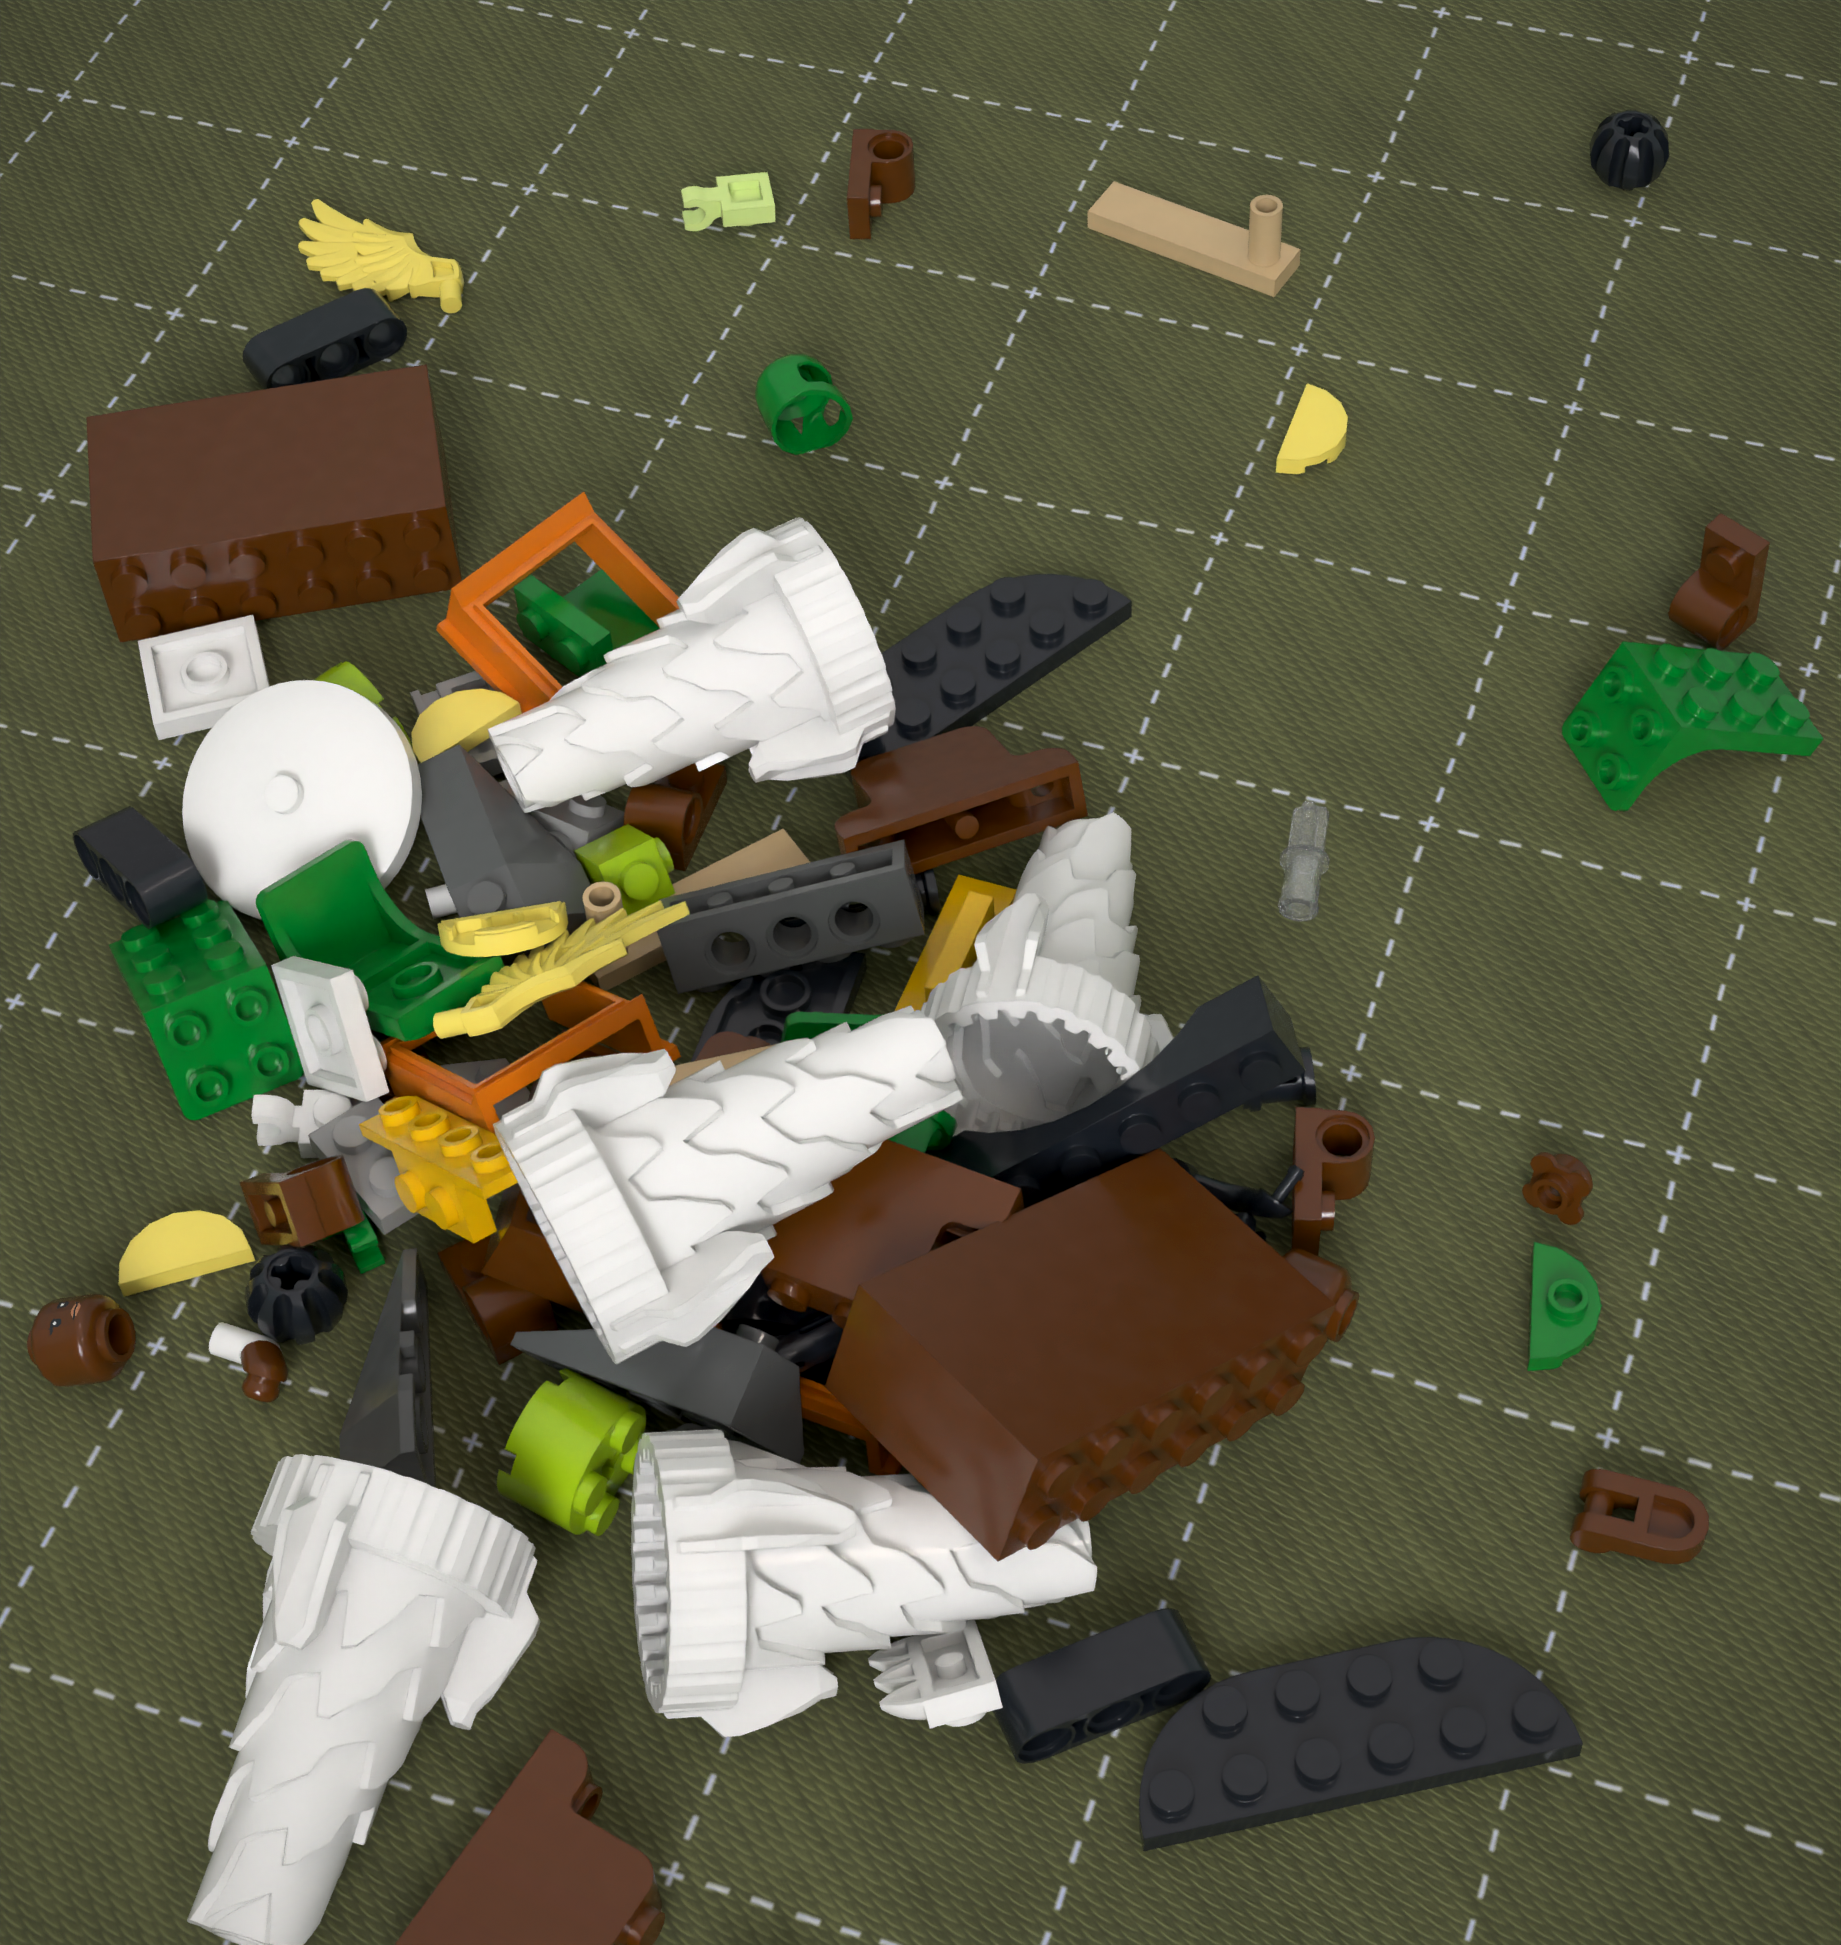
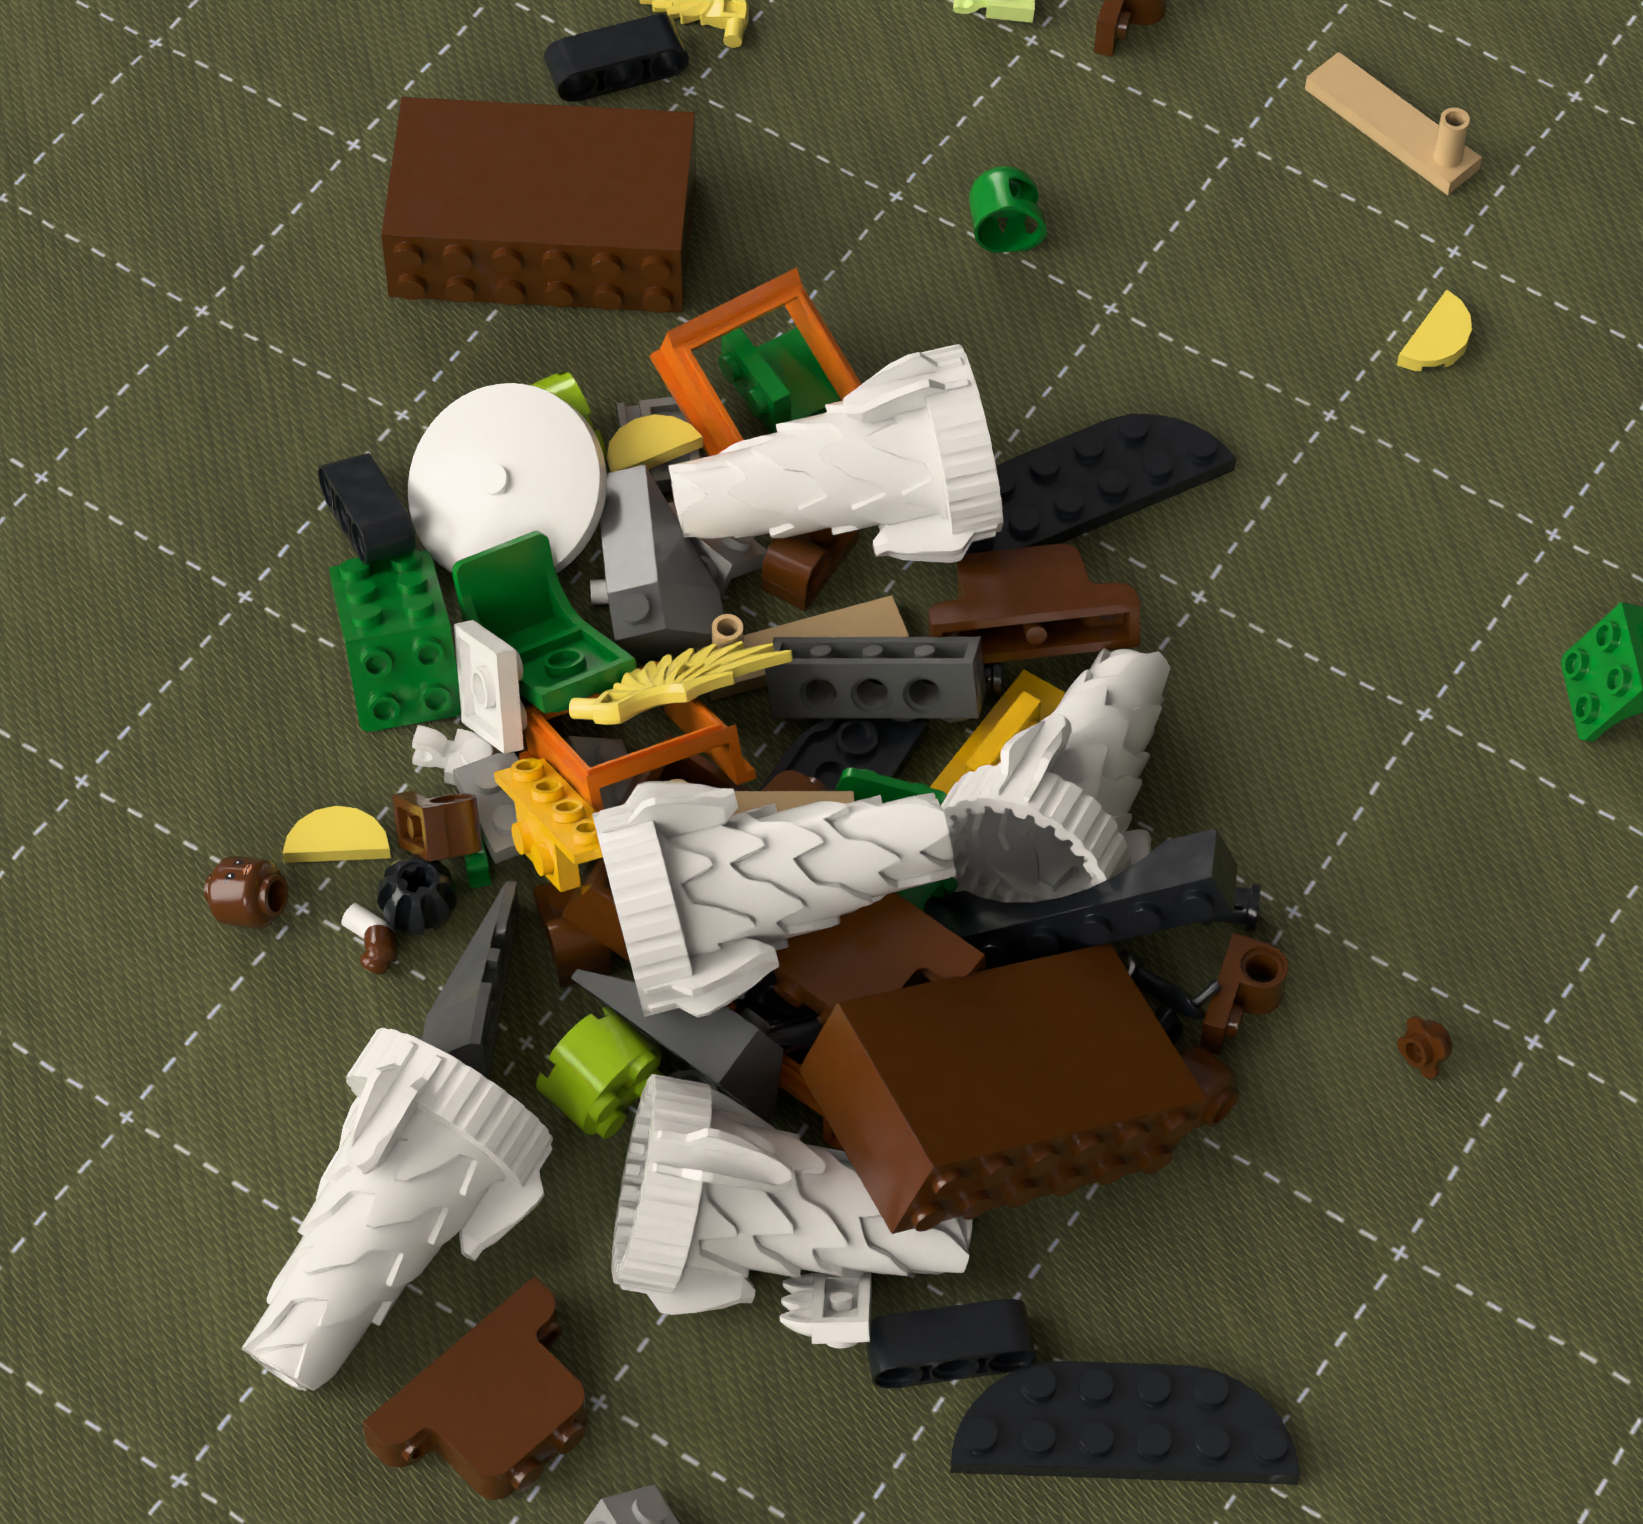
camera: 10 degrees right, 5 degrees up
(201, 674) = (452, 347): white plate -> none
(504, 930) = (643, 639): light yellow tile -> none
(632, 863) = (758, 602): lime brick -> none
(1304, 862) = (1308, 725): clear axle -> none
(1562, 1307) = (1396, 1142): green plate -> none
(1666, 1524) = (1418, 1329): reddish brown plate -> none

